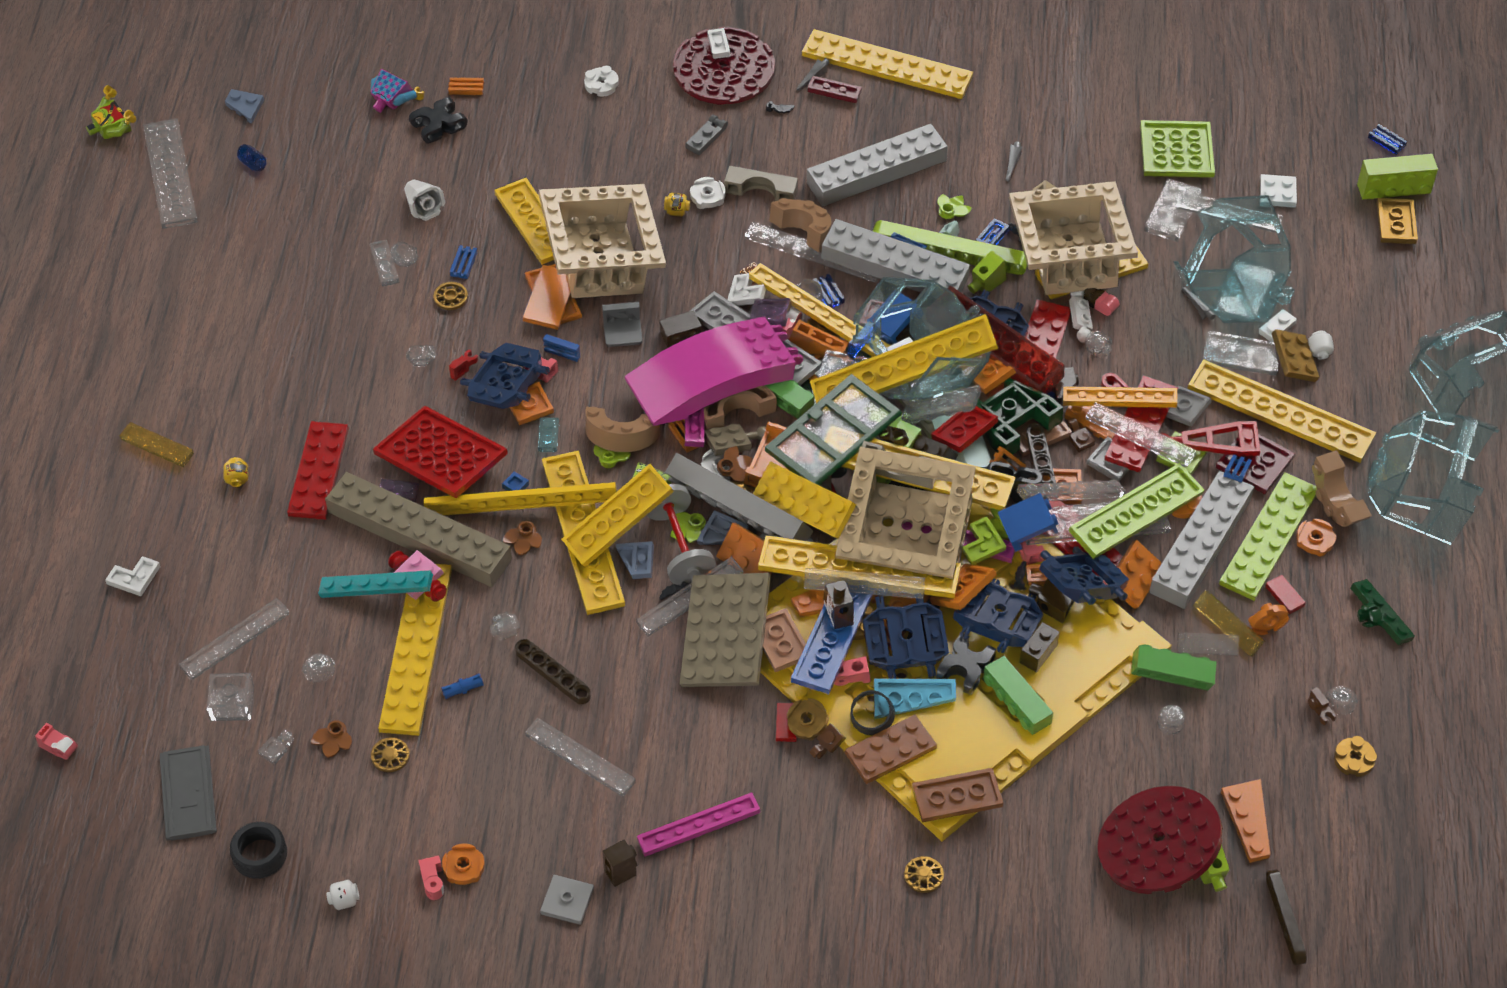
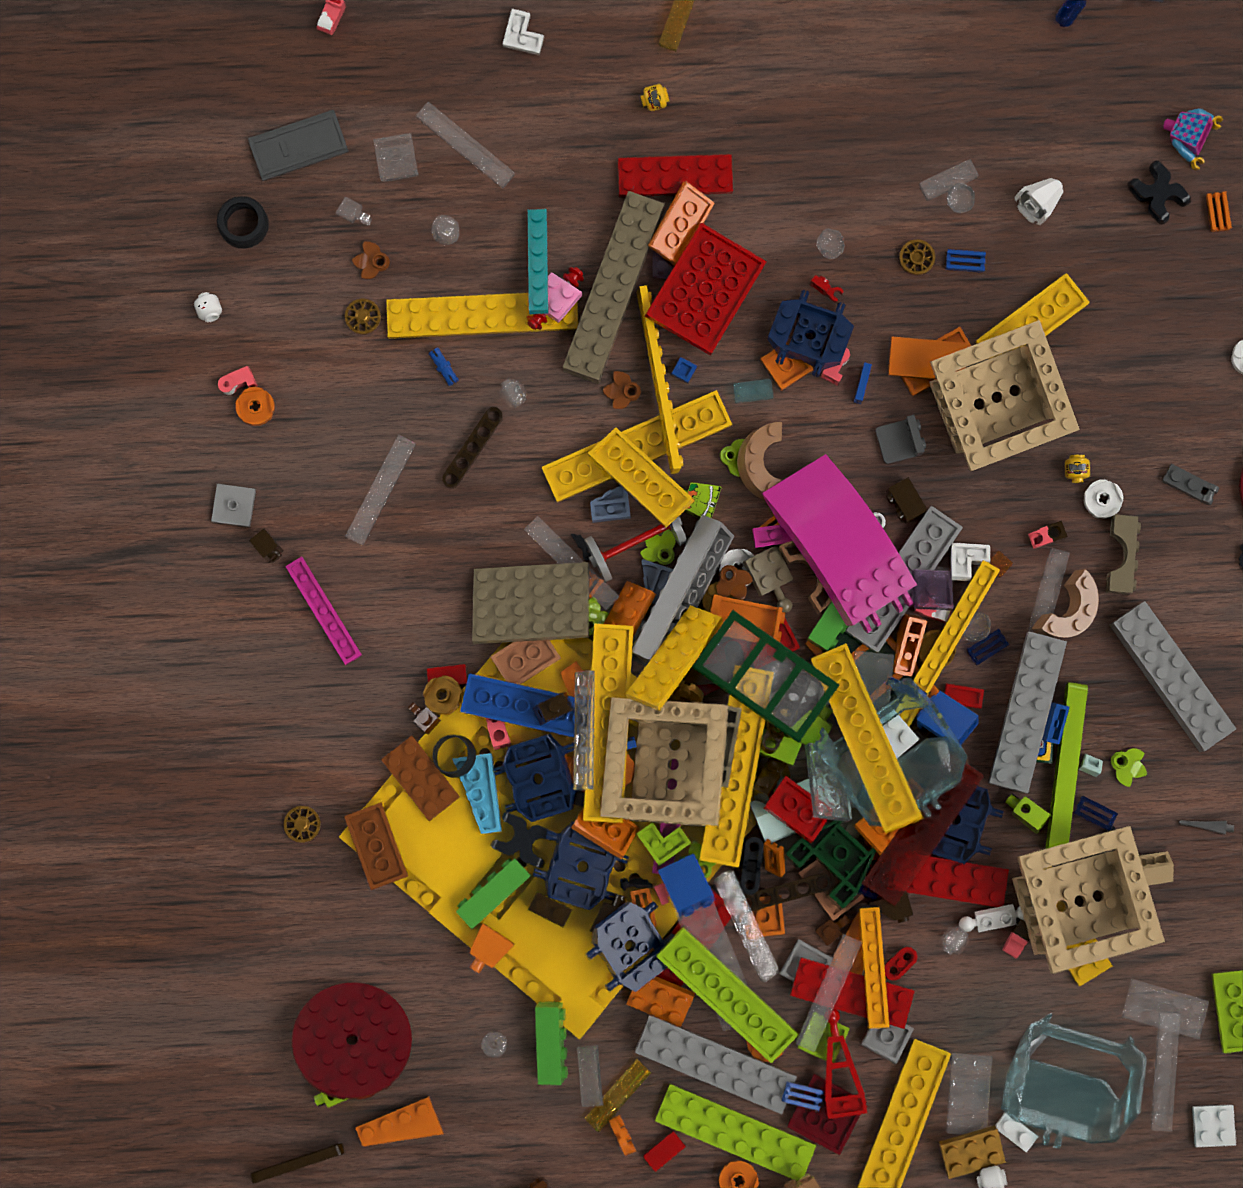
camera: 80 degrees right, 30 degrees up
(369, 465) = (680, 222): none -> orange tile
(733, 232) = (1048, 535): none -> leg
(1073, 705) = (488, 948): none -> orange torso

